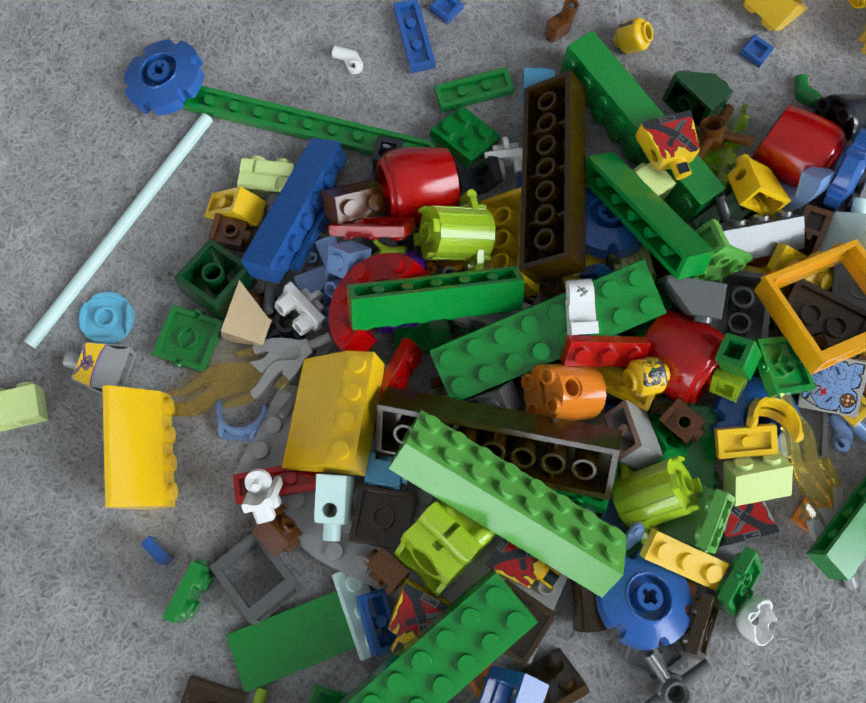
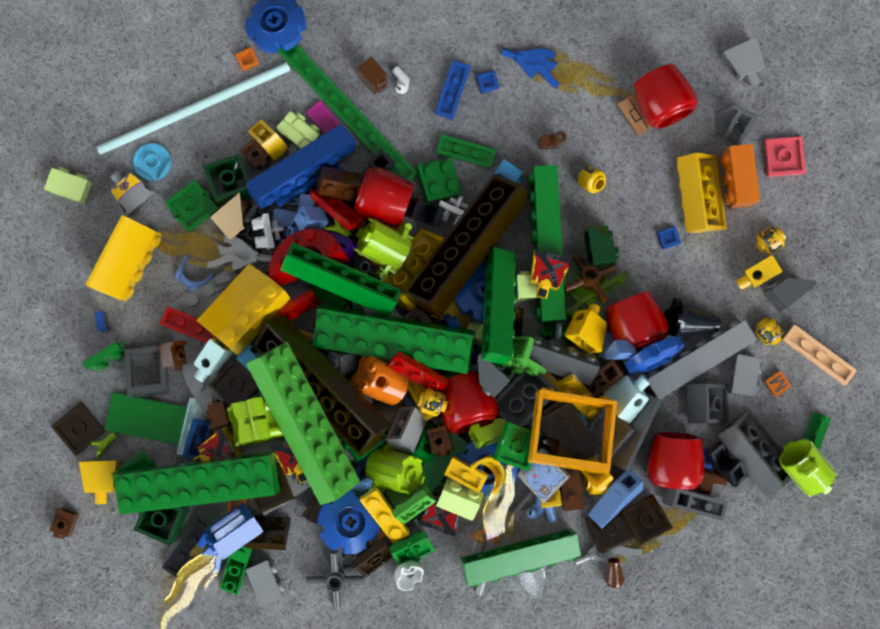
camera: 35 degrees right, 10 degrees up
(153, 137) = (247, 59): none -> orange tile
(262, 495) = (174, 331): white hips -> none
(284, 147) = (322, 117): none -> dark pink tile
(314, 65) = (372, 76): none -> reddish brown brick
(580, 307) = (414, 341): white leg -> none
(738, 356) = (488, 425): green brick -> none
(805, 93) = (677, 285): green arm -> none

